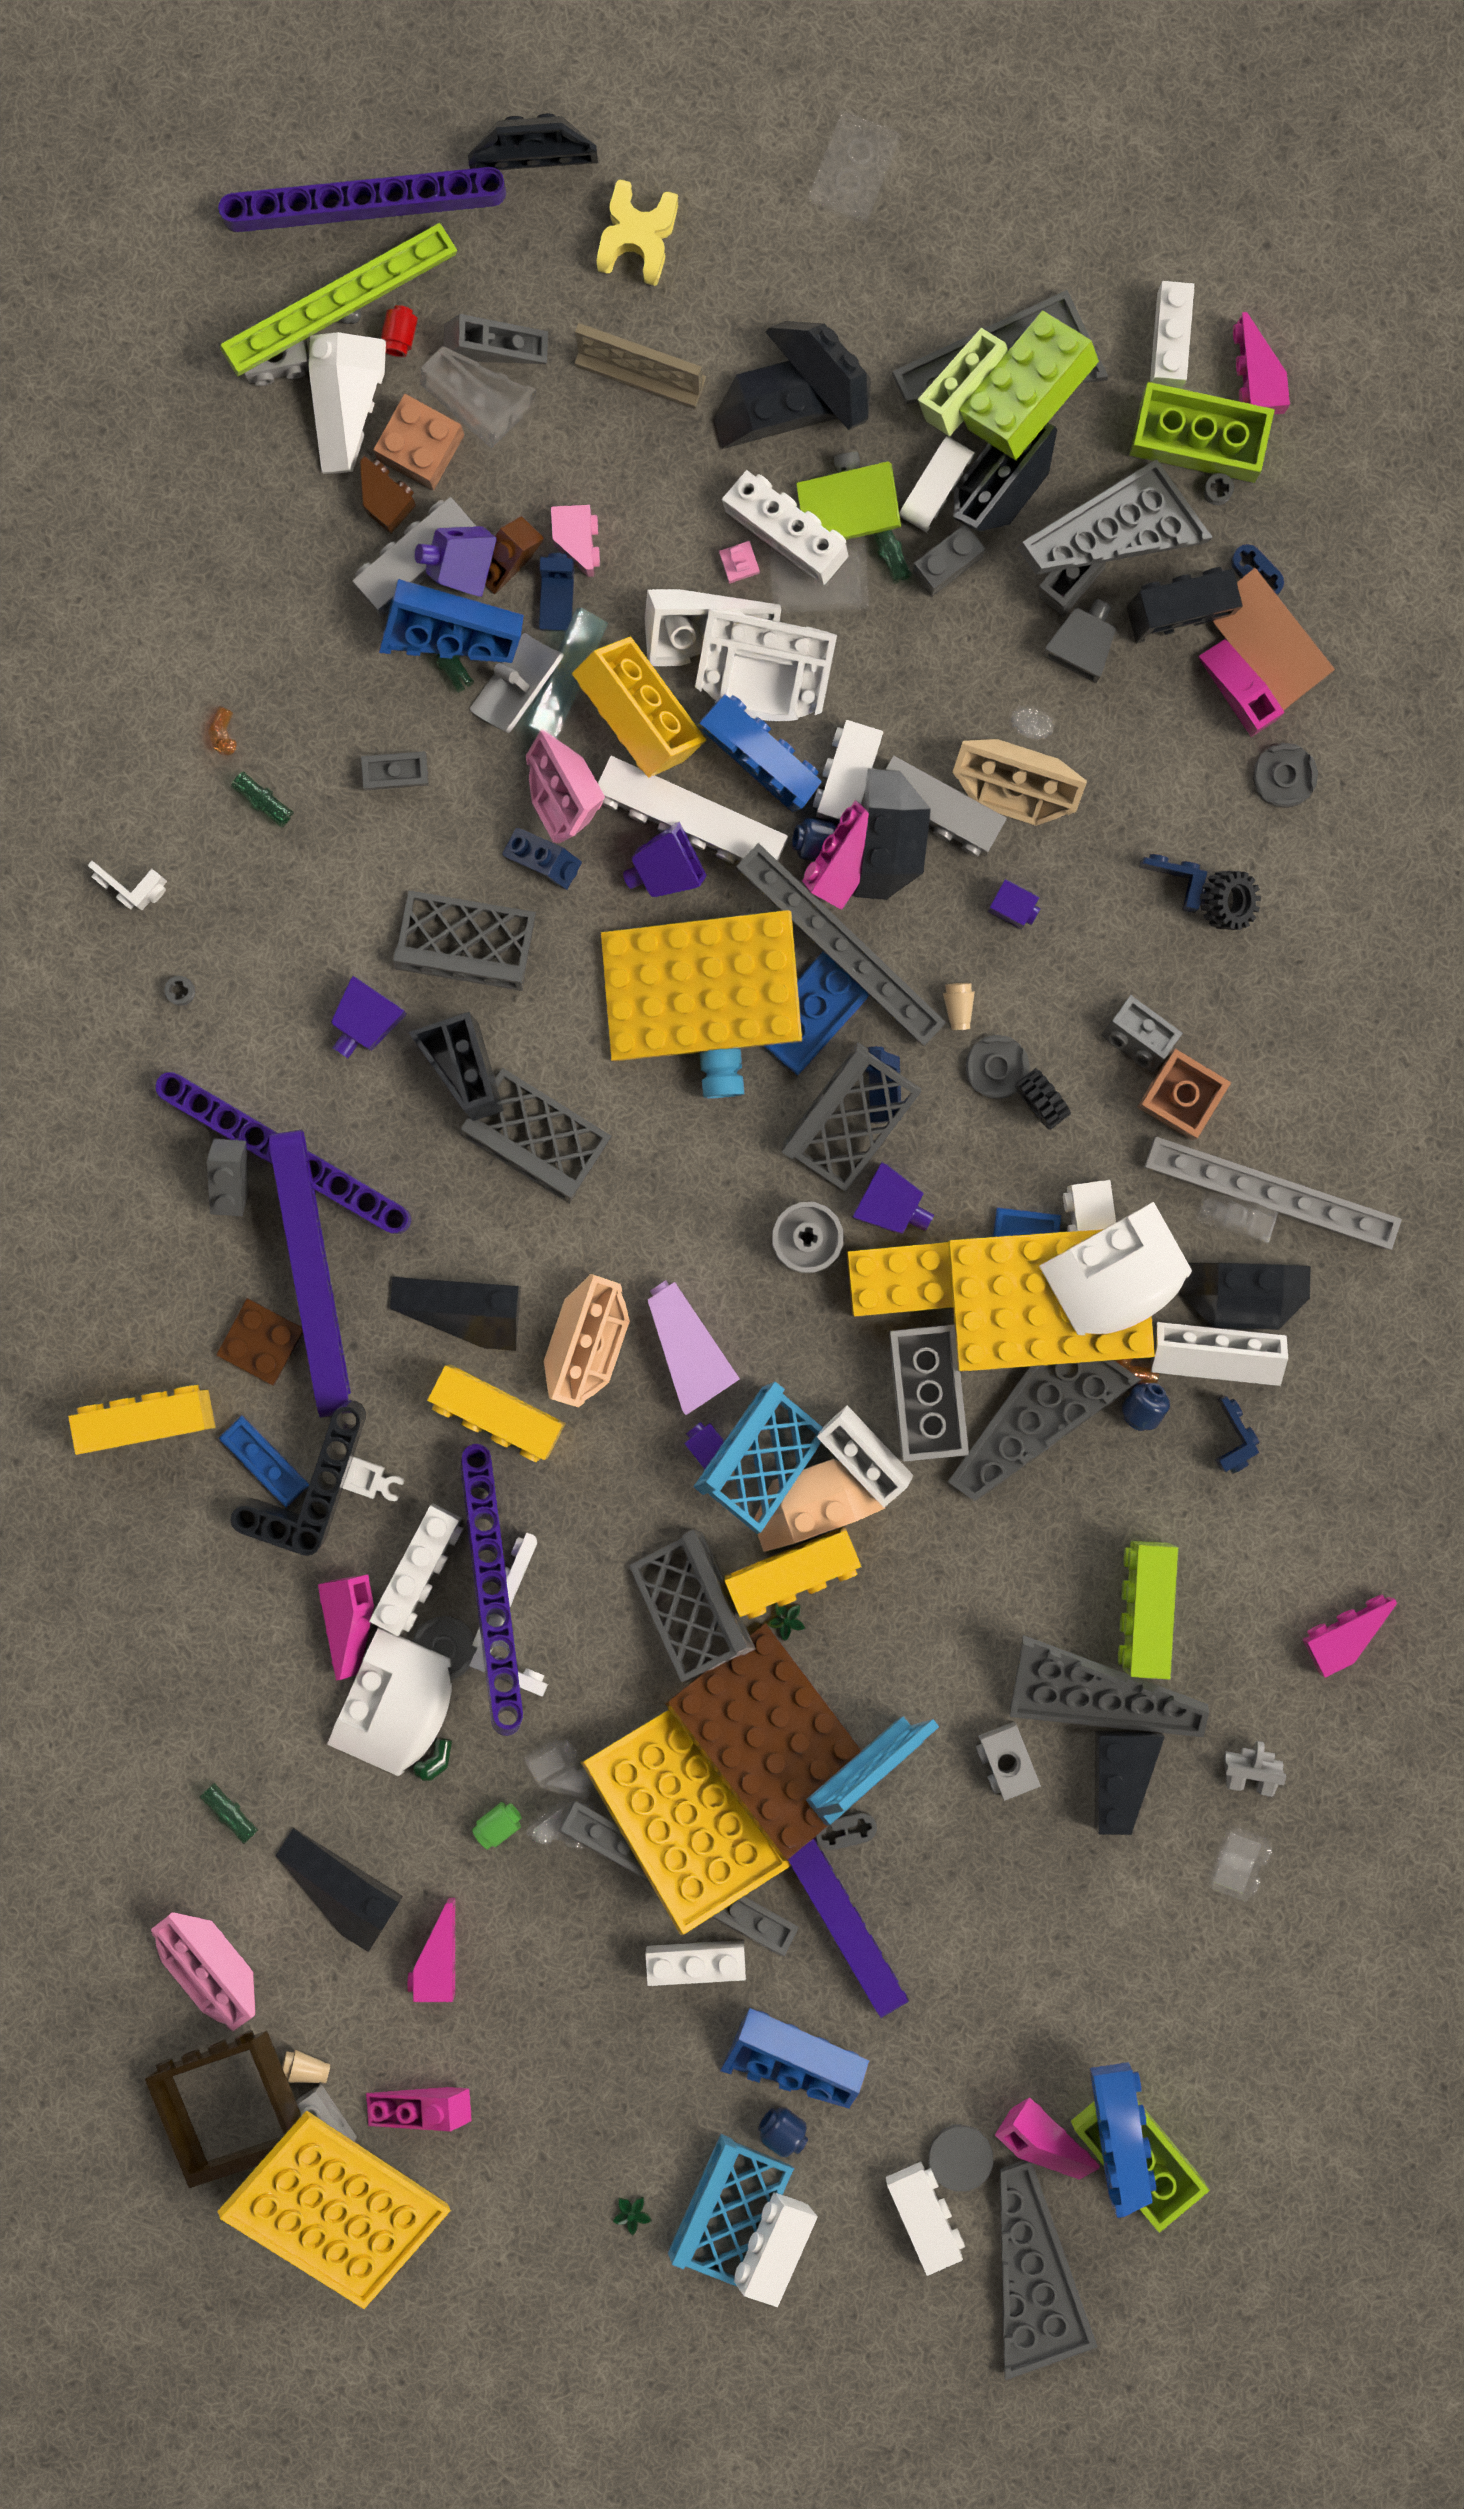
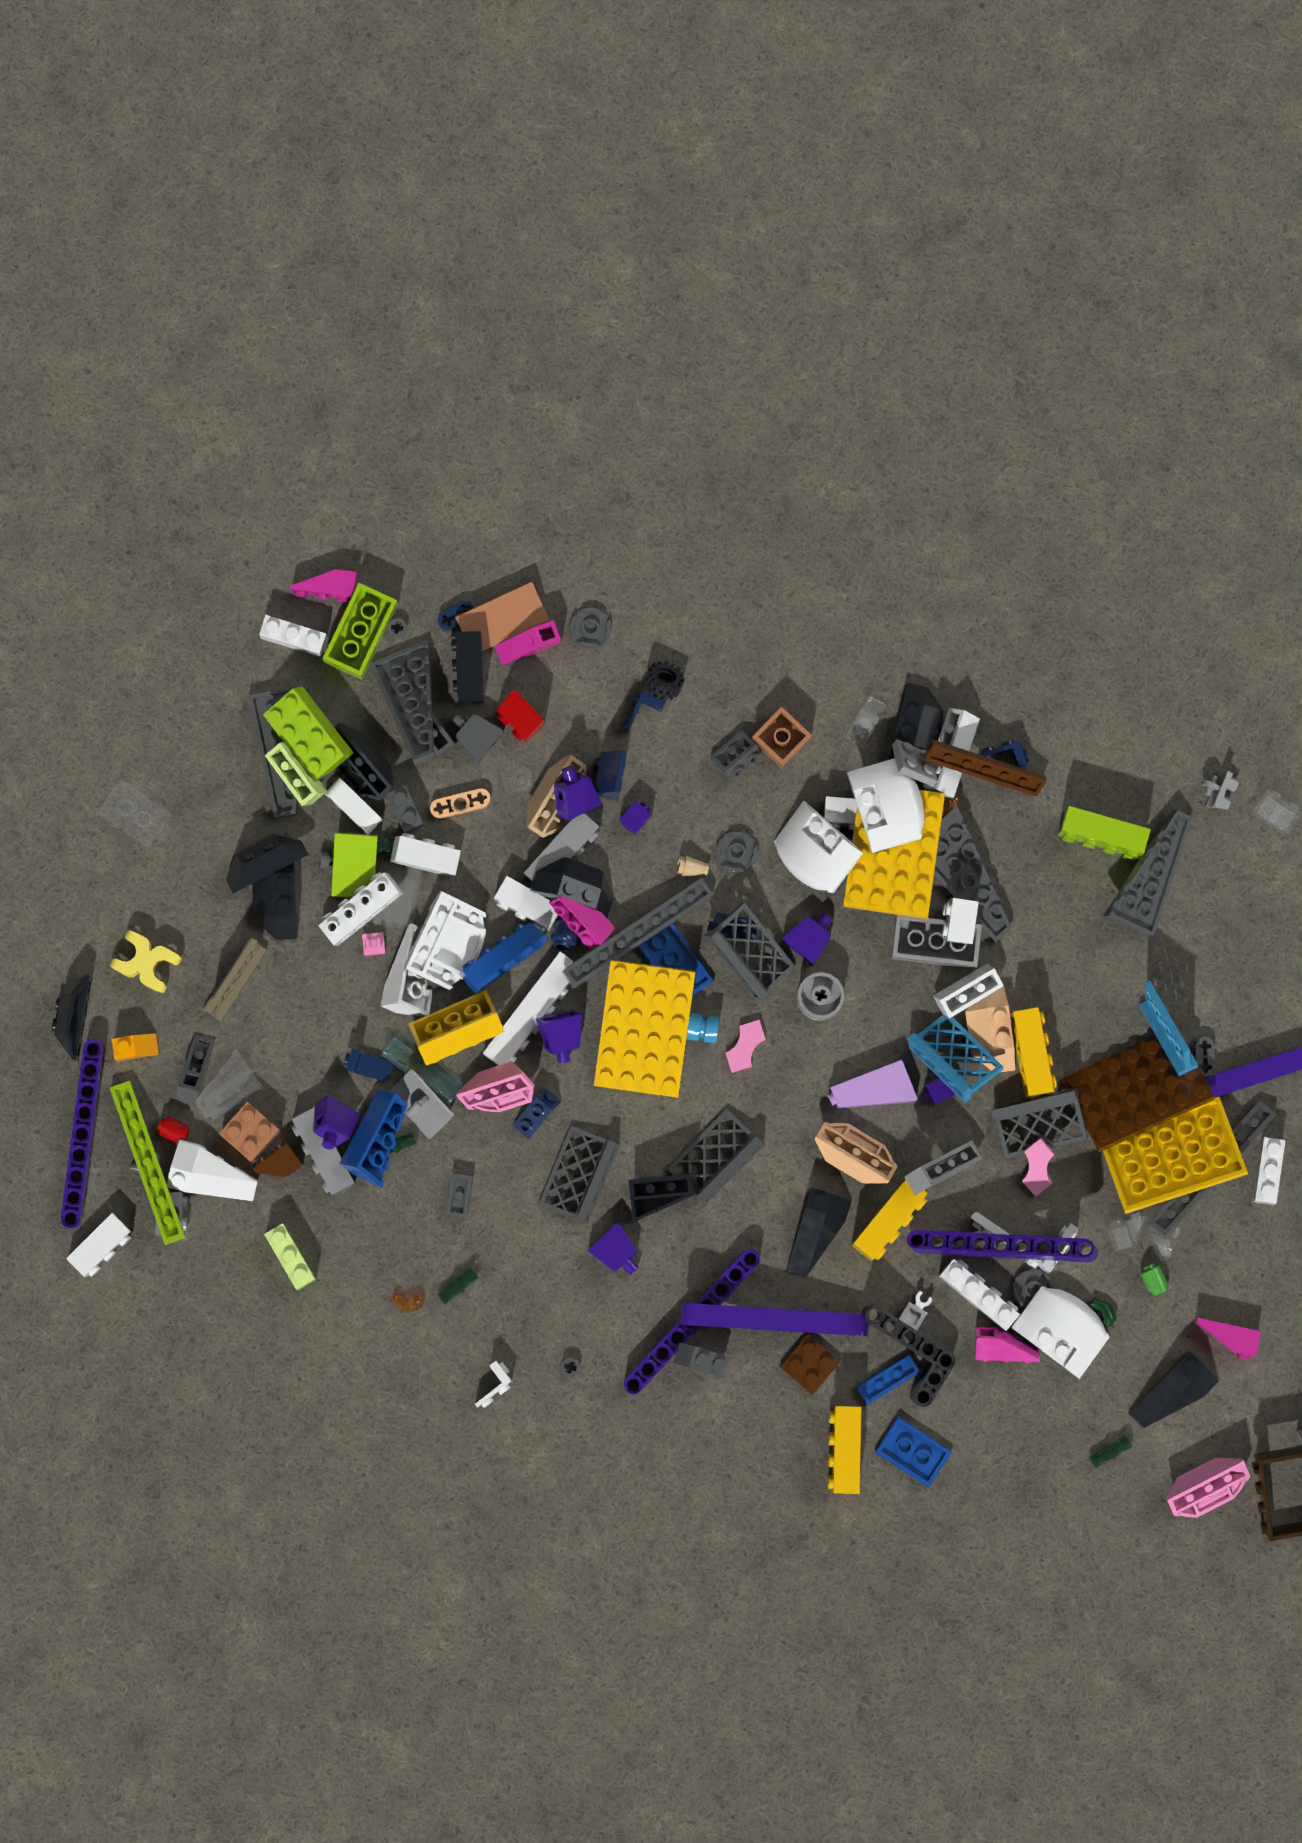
camera: 85 degrees left, 5 degrees down
(166, 1521) = (913, 1451): none -> blue tile
(205, 263) = (100, 1245): none -> white brick
(249, 543) = (290, 1256): none -> yellowish green brick
(304, 2068) = (1284, 1437): tan cone -> none
(507, 245) = (135, 1046): none -> light orange slope
(512, 550) = (333, 1086): reddish brown slope -> none
(573, 535) = (334, 1046): bright pink slope -> none
(588, 1475) = (943, 1167): none -> light grey brick
(611, 1619) = (1037, 1177): none -> bright pink tile
(724, 1147) = (750, 1036): none -> bright pink tile
(786, 1620) = (1062, 1065): dark green plant -> none
(887, 604) = (425, 855): none -> white brick
(900, 1279) = (859, 943): yellow brick -> none
(958, 624) = (474, 794): none -> light nougat beam
(967, 1421) = (961, 920): none -> white brick
(1021, 1775) = (1193, 938): light grey brick -> none
(1025, 1182) = (816, 850): none -> white slope
(1027, 802) = (574, 794): none -> dark purple torso
(1042, 1099) = (764, 827): black tyre -> none
(1069, 851) = (609, 774): none -> dark blue slope
(1122, 1777) = (1206, 874): black wedge -> none
(1126, 698) = (520, 717): none -> red slope
(1145, 1406) = (974, 806): dark blue head -> none
(1190, 1301) = (912, 763): none -> light grey plate
(1207, 1408) = (984, 768): none -> reddish brown plate
(1273, 1192) = (856, 696): light grey plate -> none
(1344, 1641) = (1150, 715): dark pink slope -> none

